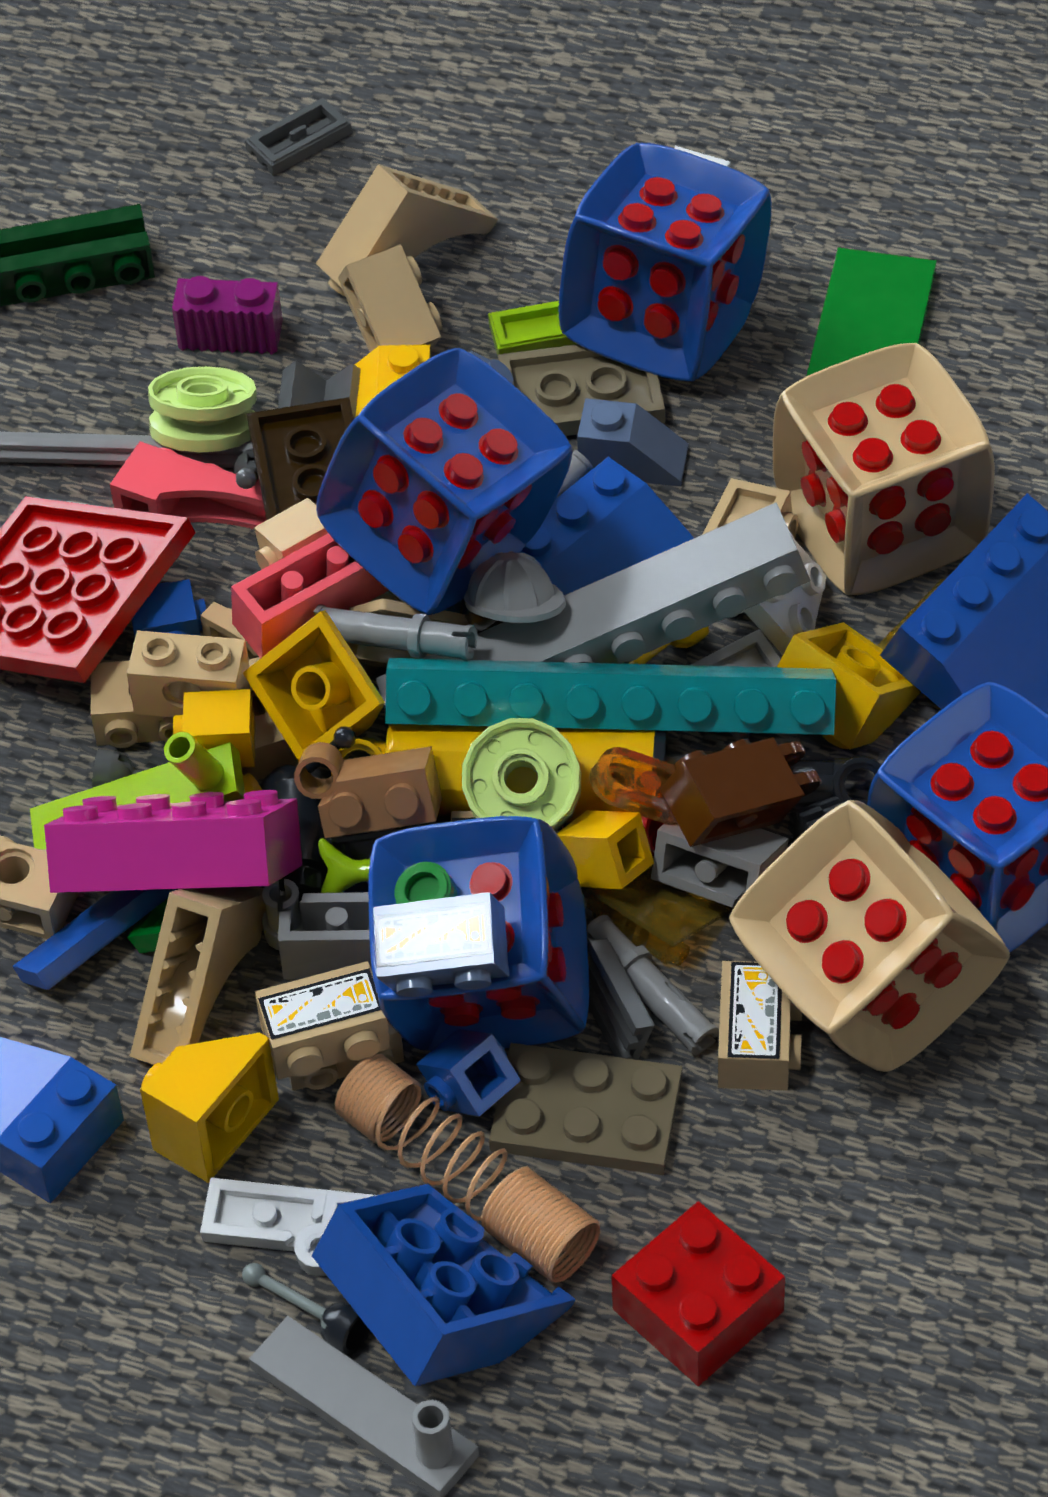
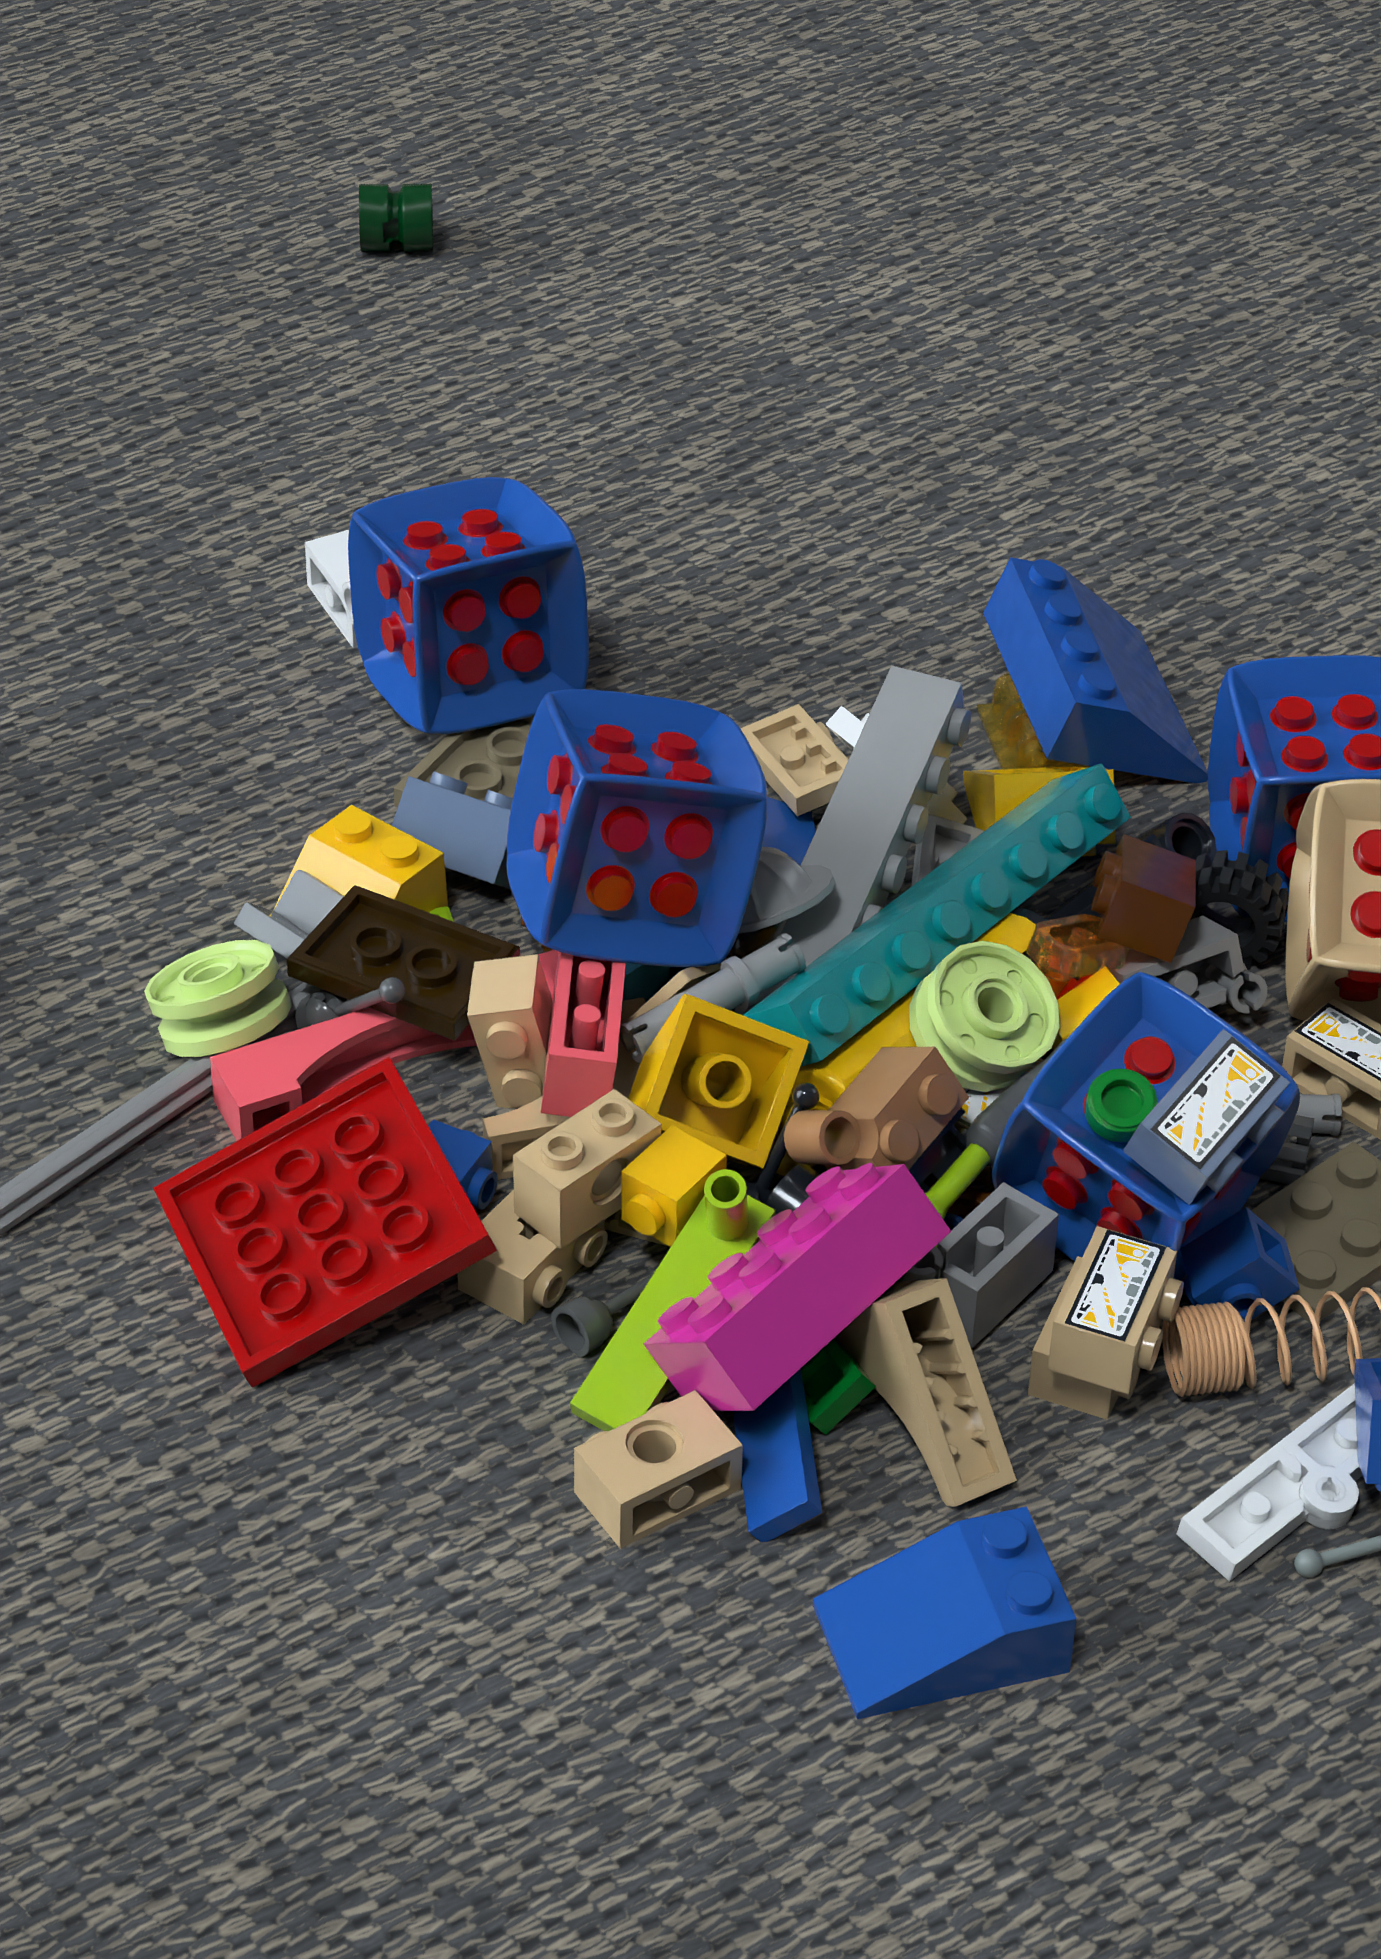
camera: 55 degrees left, 10 degrees down
(209, 1100) = (1110, 1462): yellow slope -> none
(227, 315) = (108, 922): magenta brick -> none
(388, 300) = (257, 808): tan brick -> none
(403, 211) = (166, 760): tan arch -> none
(527, 328) = (377, 756): lime tile -> none
(871, 305) = (655, 584): green tile -> none
(883, 467) = (851, 597): tan piece -> none

